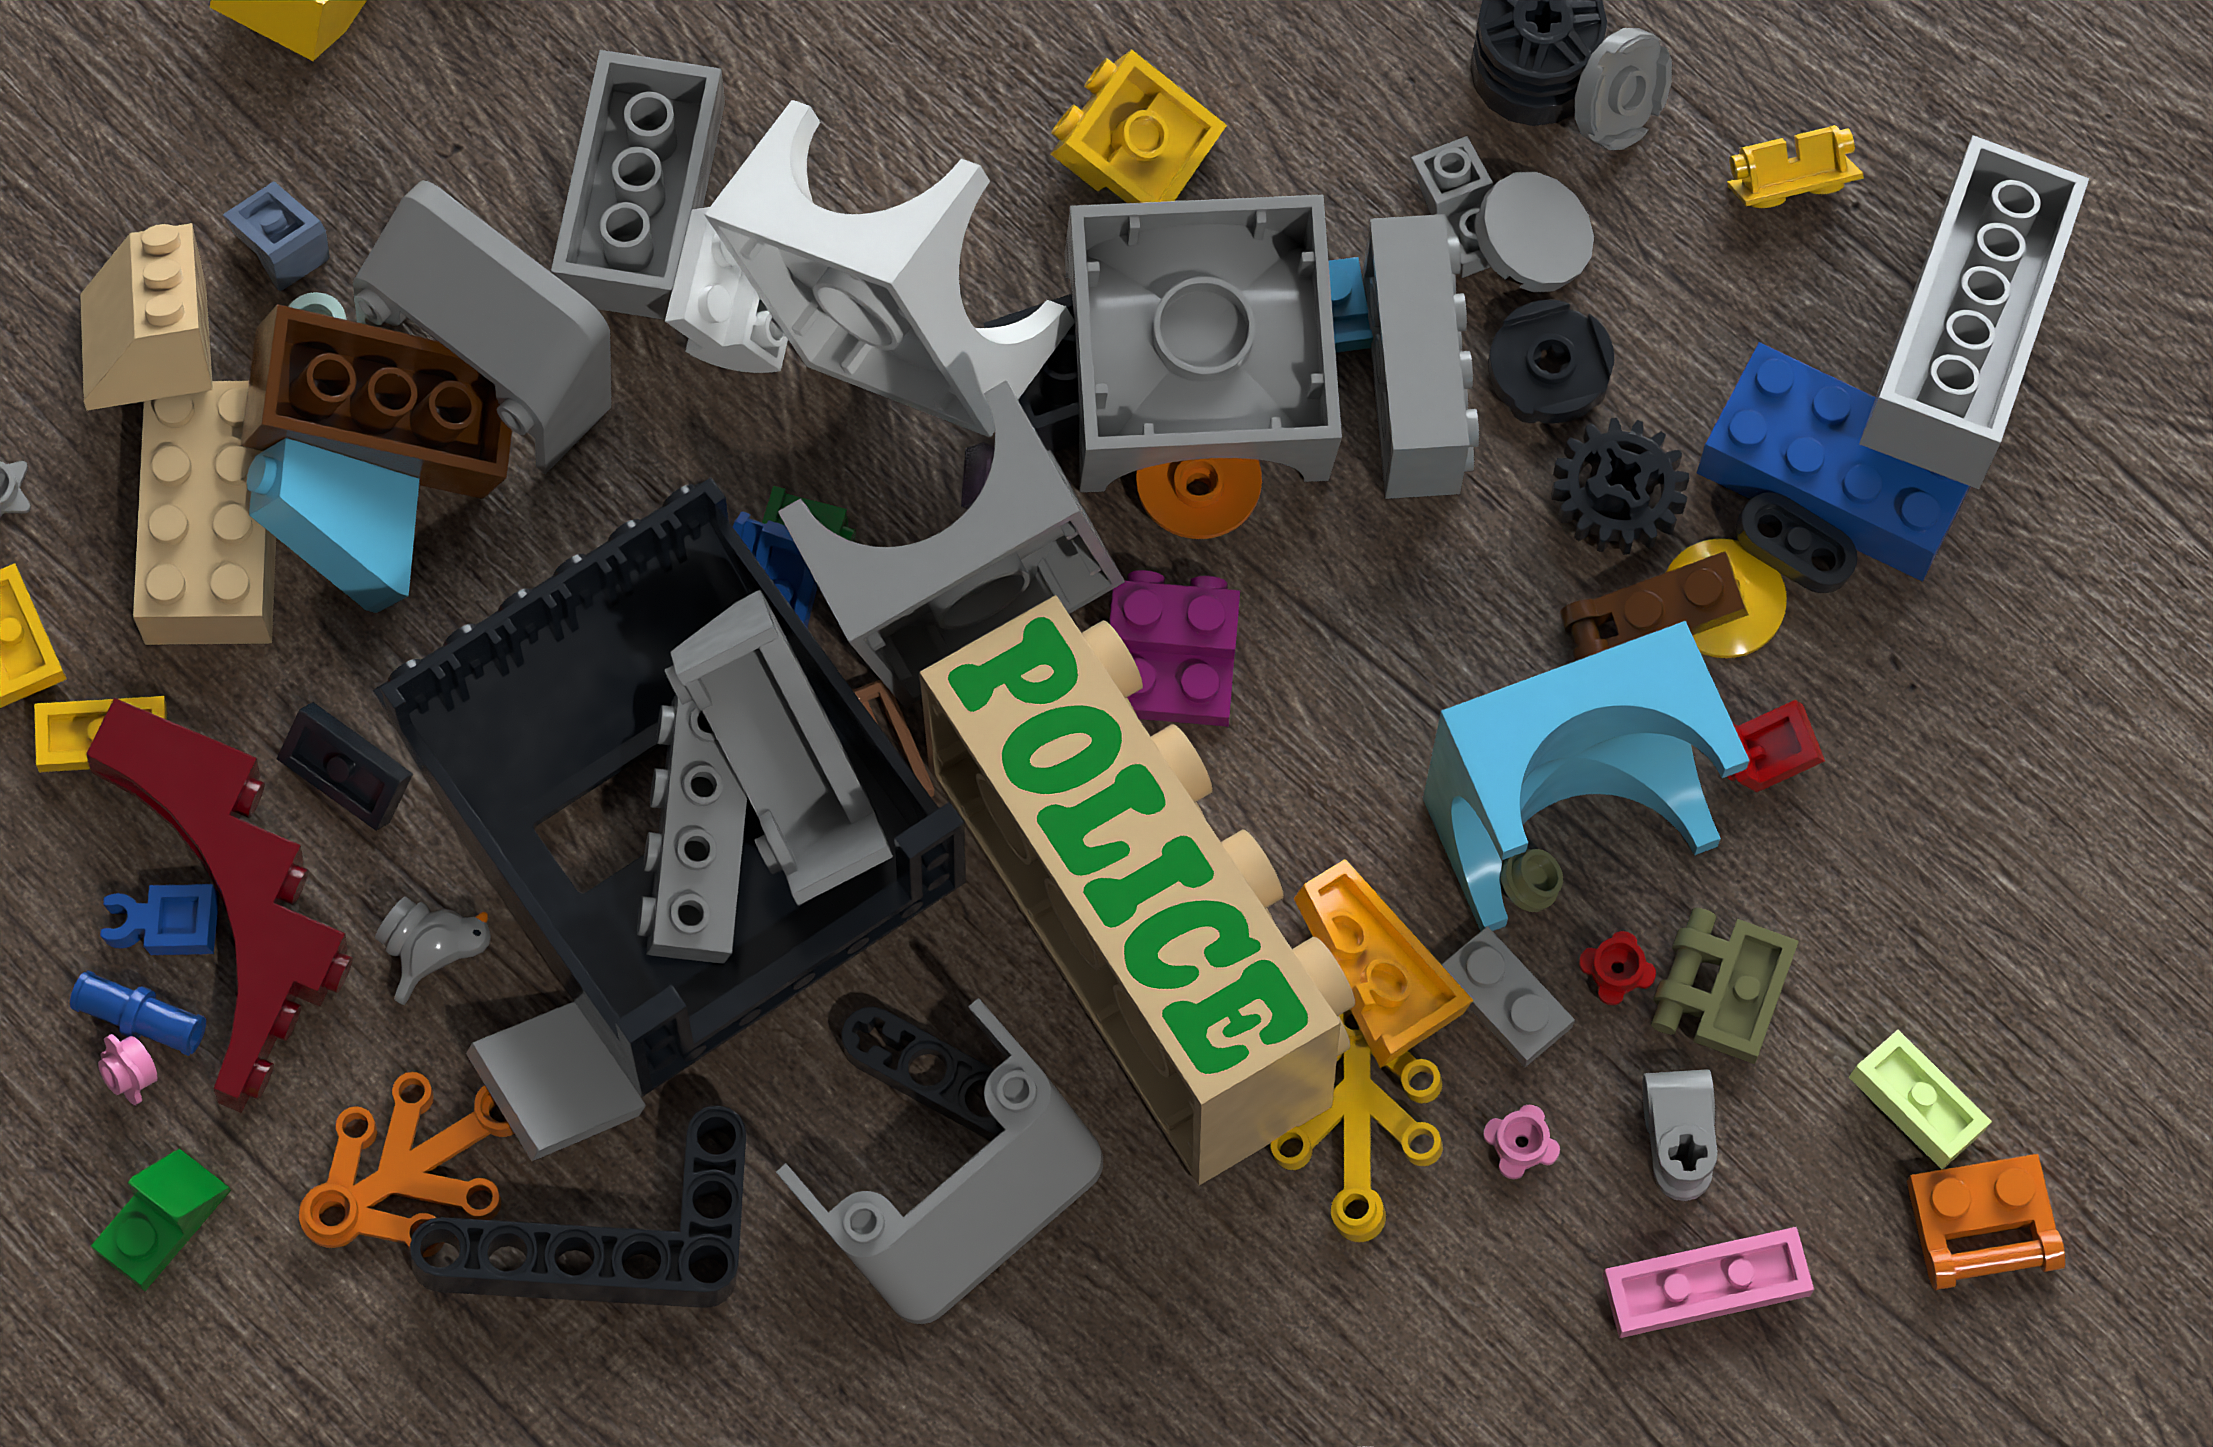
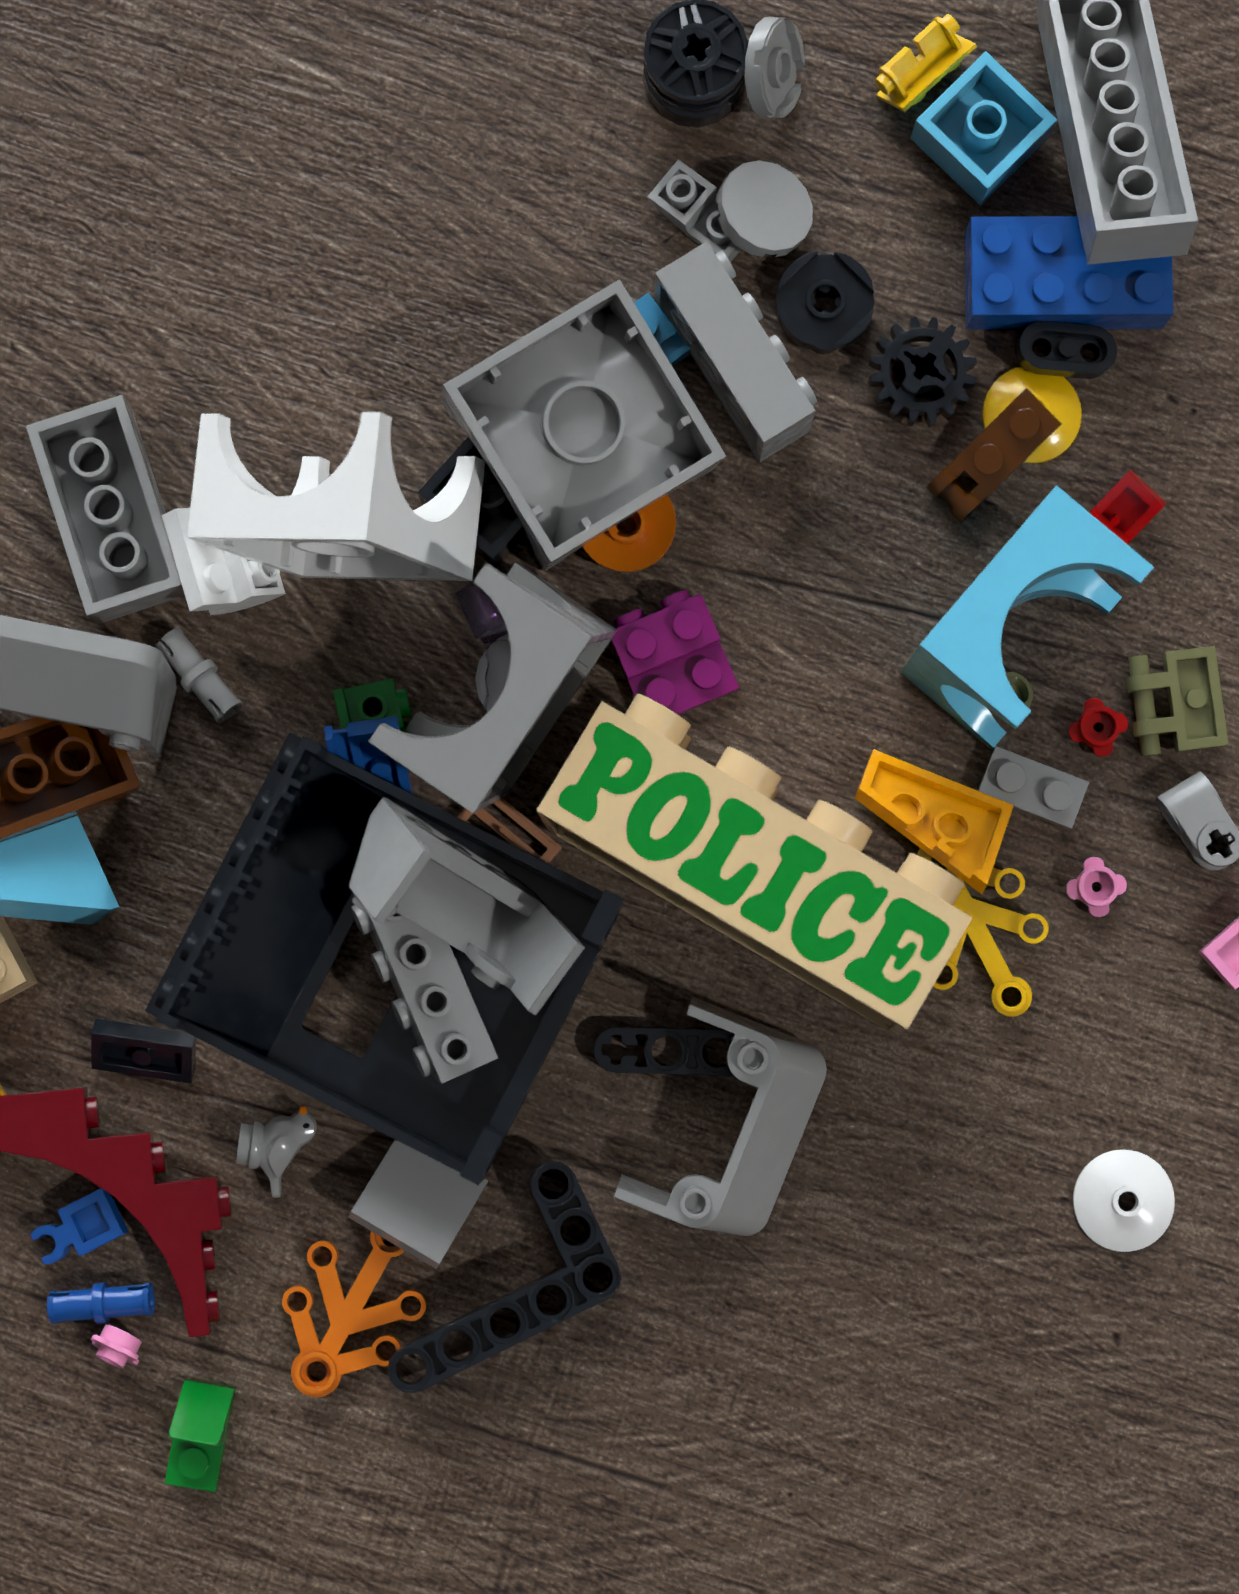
camera: 25 degrees left, 15 degrees up
(637, 407) = (199, 675): none -> light grey pin
(1135, 132) = (442, 282): yellow plate -> none
(1824, 264) = (983, 128): none -> medium azure brick

